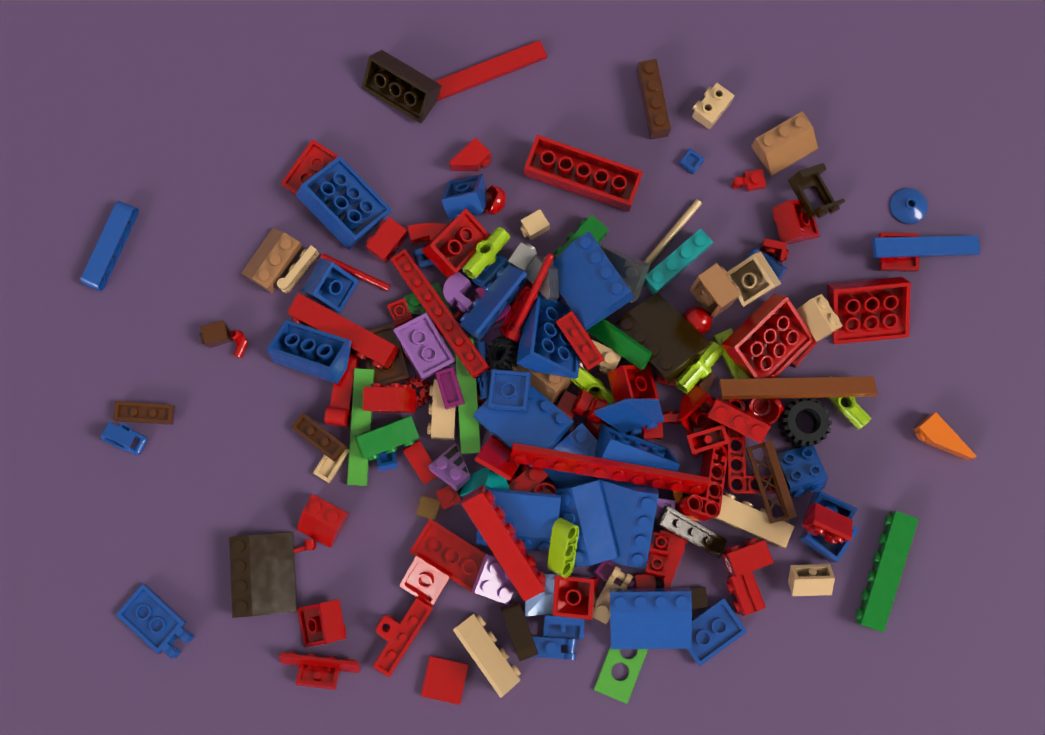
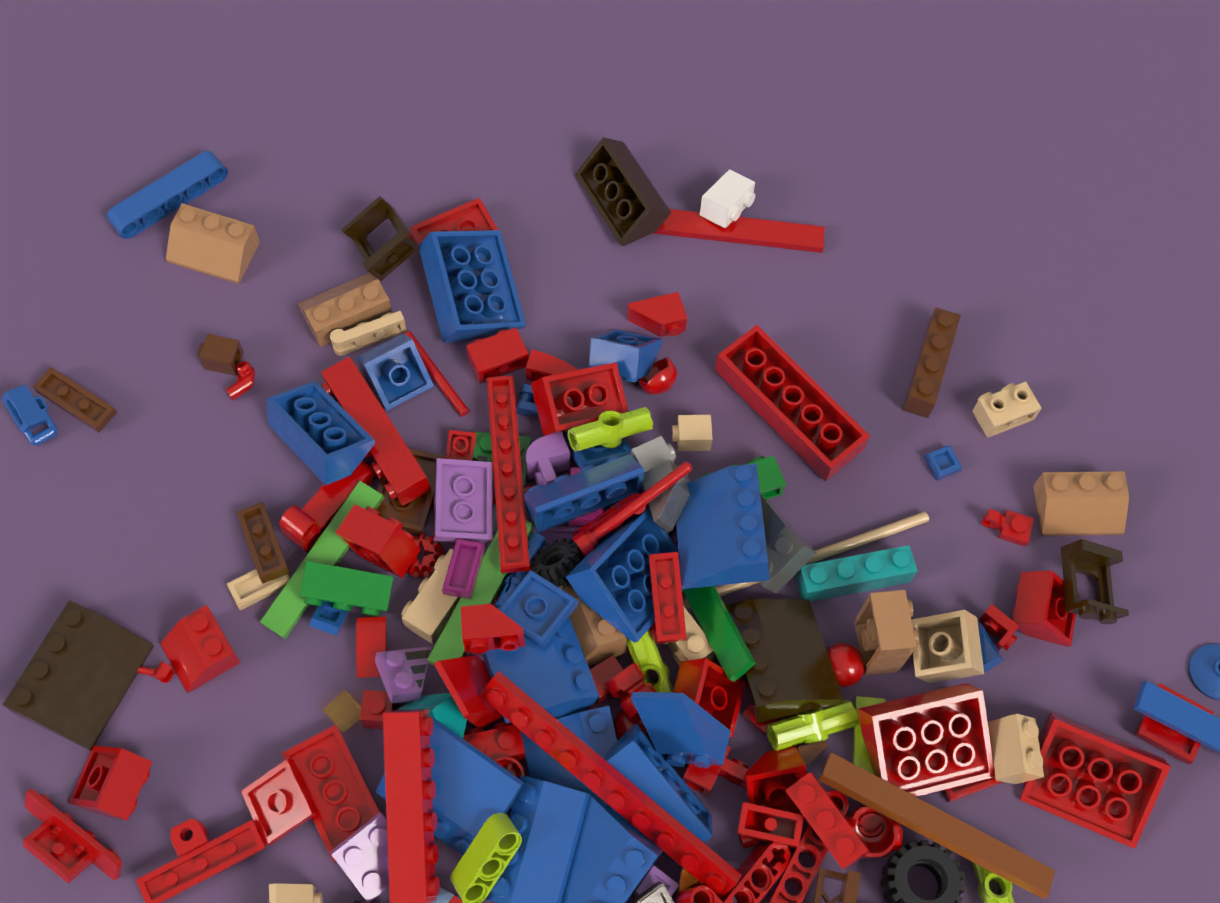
camera: 25 degrees right, 15 degrees down
(160, 264) = (211, 243): none -> medium nougat slope
(283, 208) = (391, 253): none -> dark brown window
(470, 54) = (727, 198): none -> white brick
(490, 418) = (489, 629): none -> red slope

